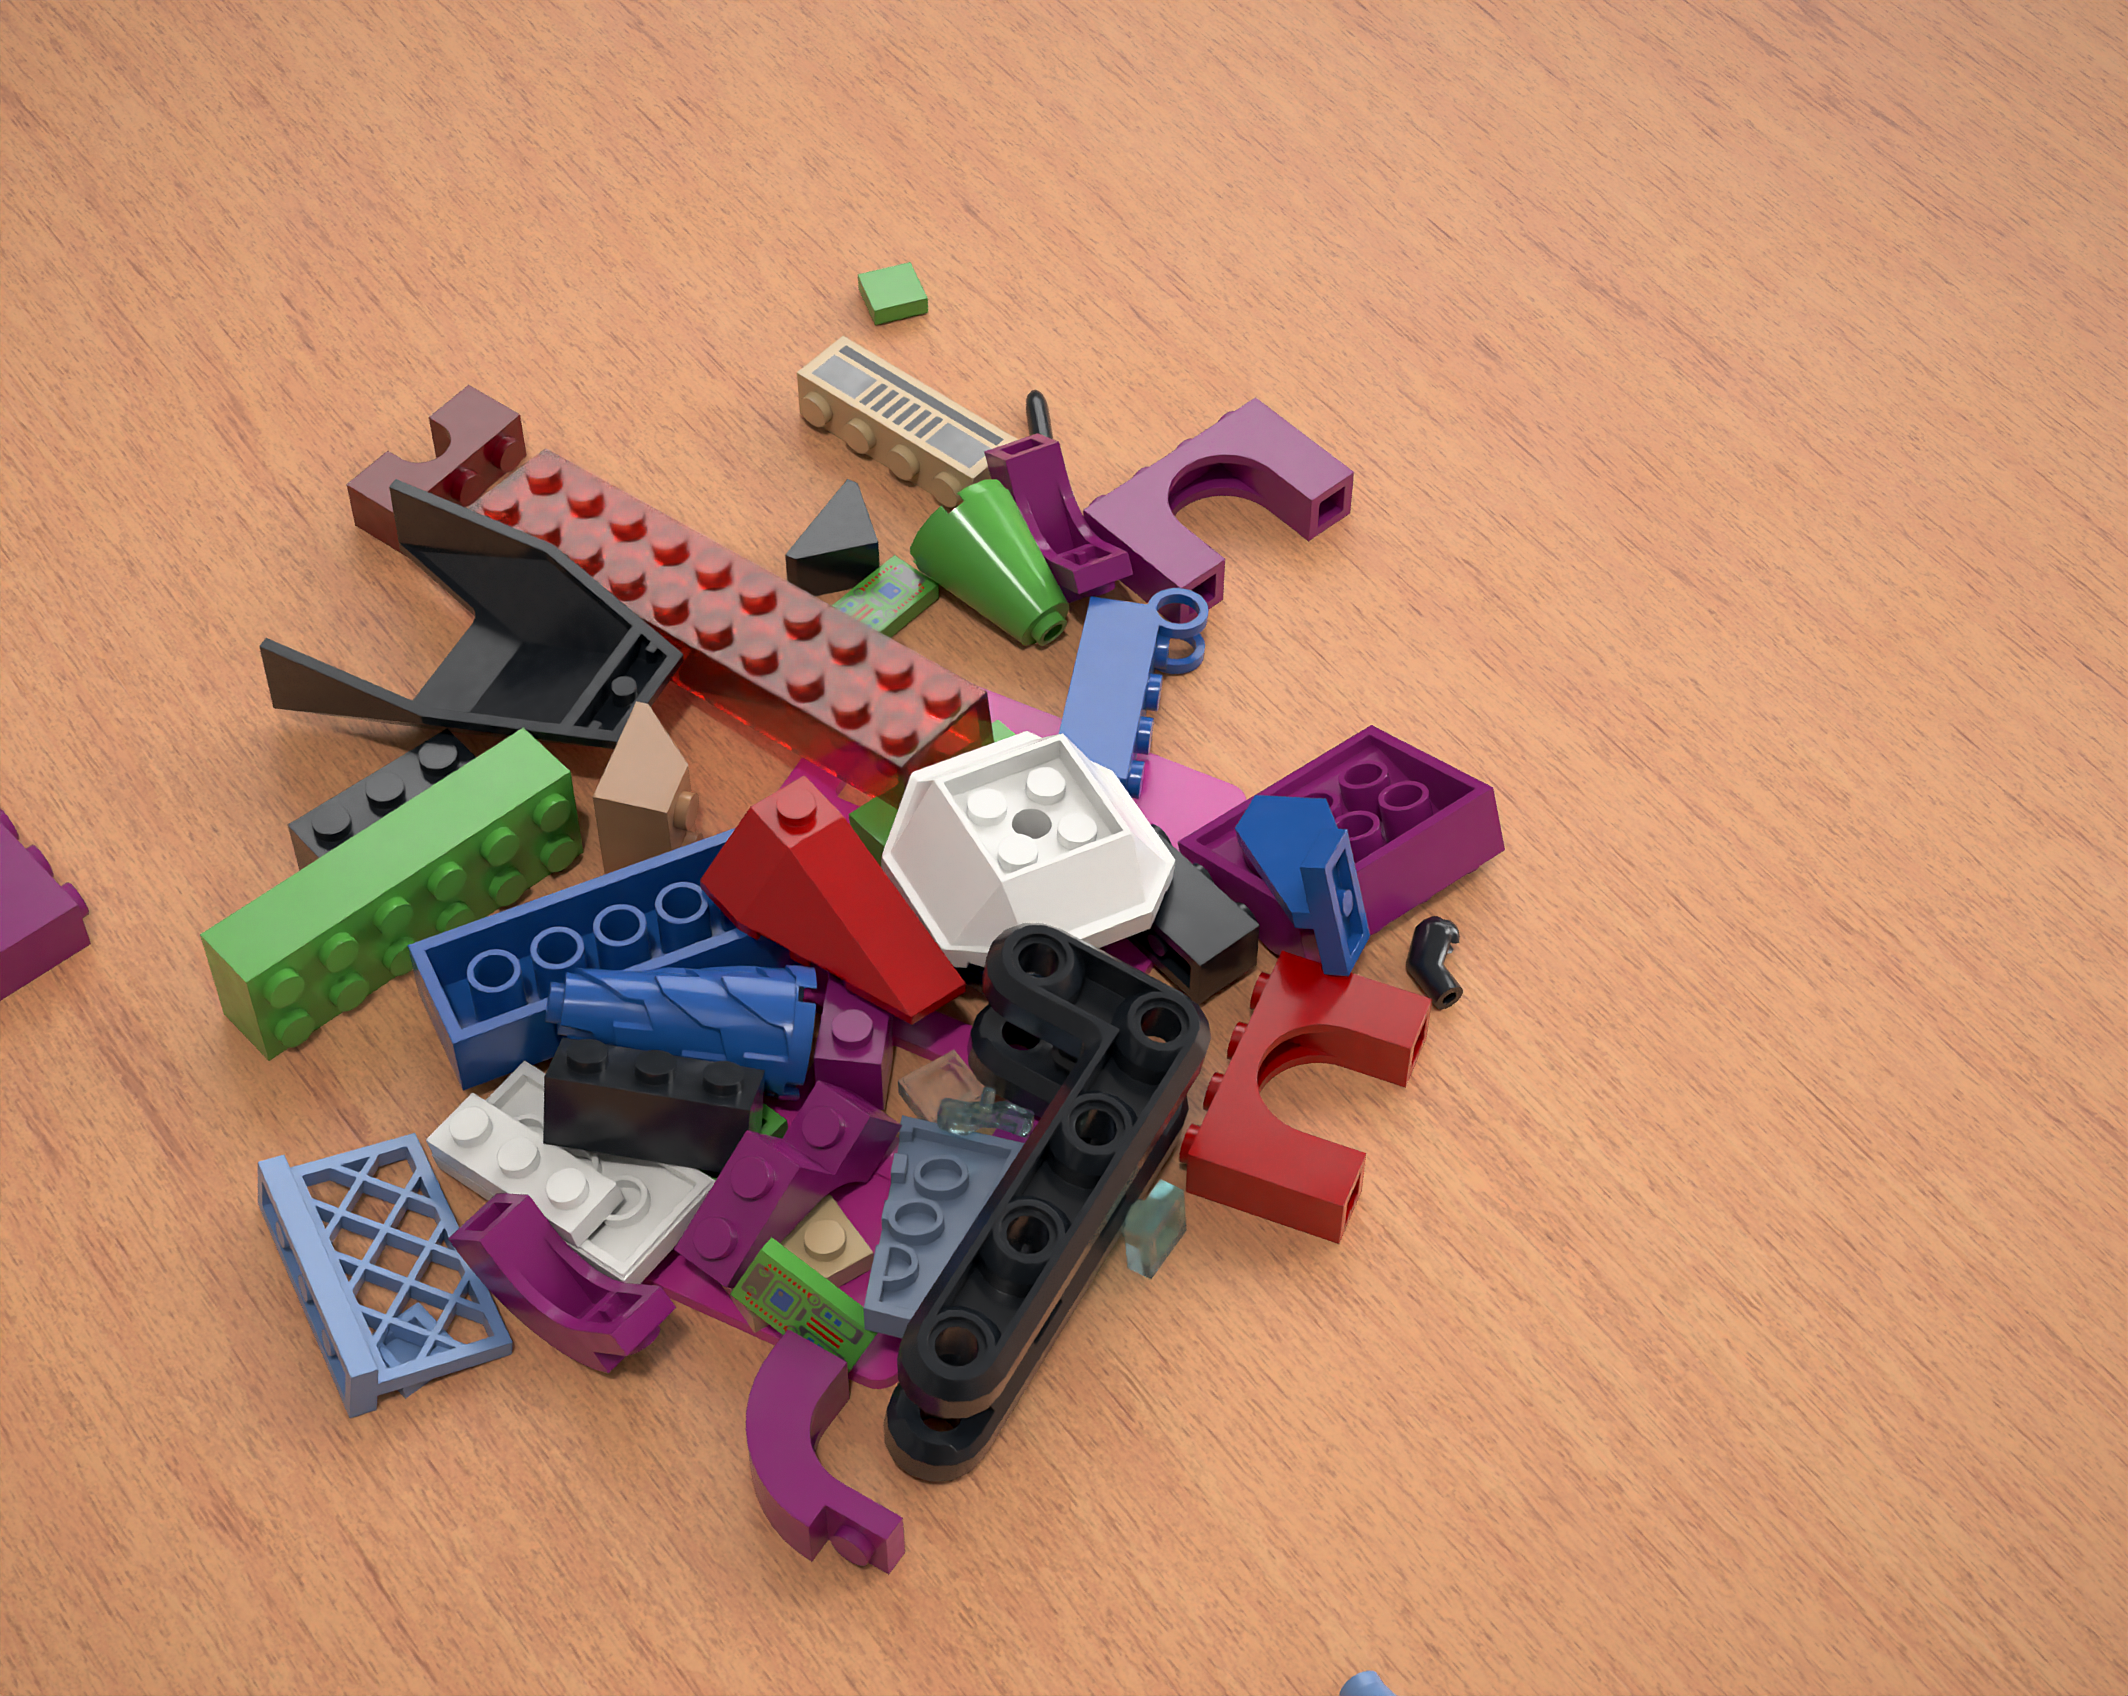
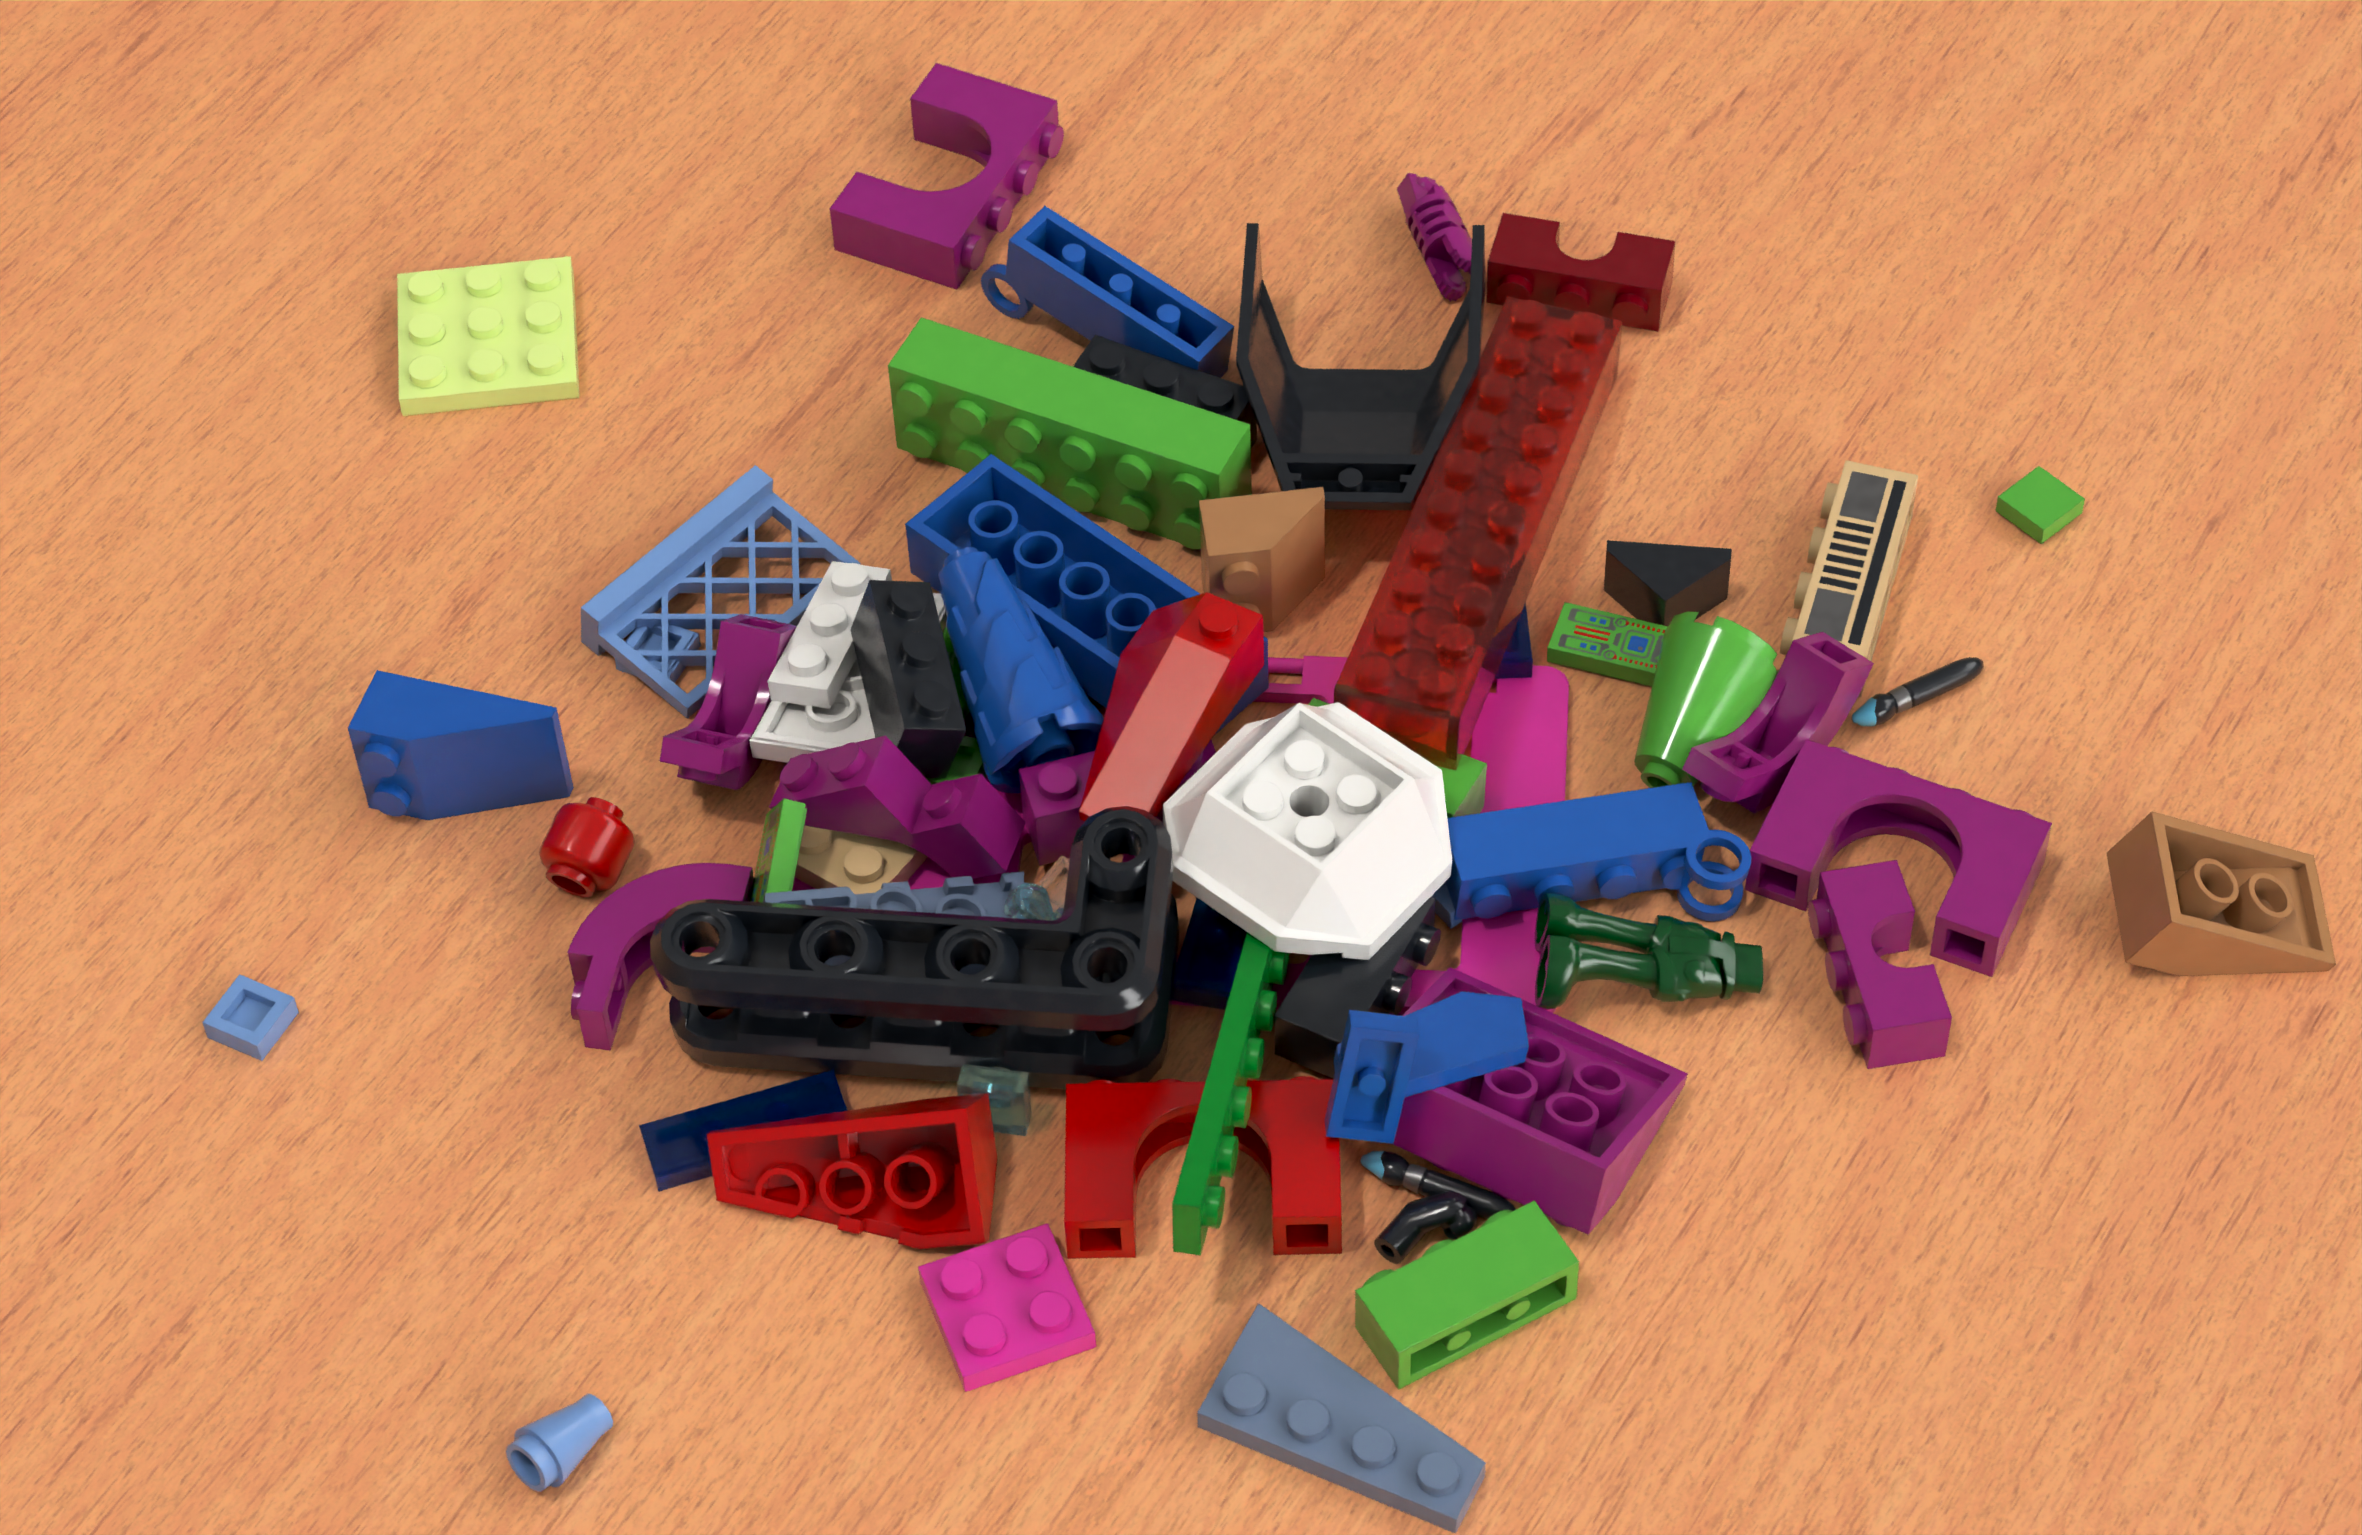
camera: 70 degrees right, 0 degrees up
(231, 806) = (1105, 295): none -> blue hinge
(313, 548) = (1437, 232): none -> magenta hinge
(461, 1566) = (454, 749): none -> blue slope
(656, 1481) = (586, 847): none -> red head
(1073, 1458) = (679, 1143): none -> clear blue tile
(1191, 1339) = (883, 1170): none -> red wedge
(1250, 681) = (1677, 961): none -> dark green piece
(1298, 1024) = (1225, 1098): none -> green plate
(1361, 579) = (1889, 1009): none -> magenta arch
(1364, 351) = (2216, 902): none -> medium nougat slope
(1381, 1305) = (1006, 1307): none -> dark pink plate
(1400, 936) = (1397, 1171): none -> black piece
(1528, 954) = (1465, 1293): none -> bright green brick
(1604, 1105) = (1328, 1420): none -> sand blue wing

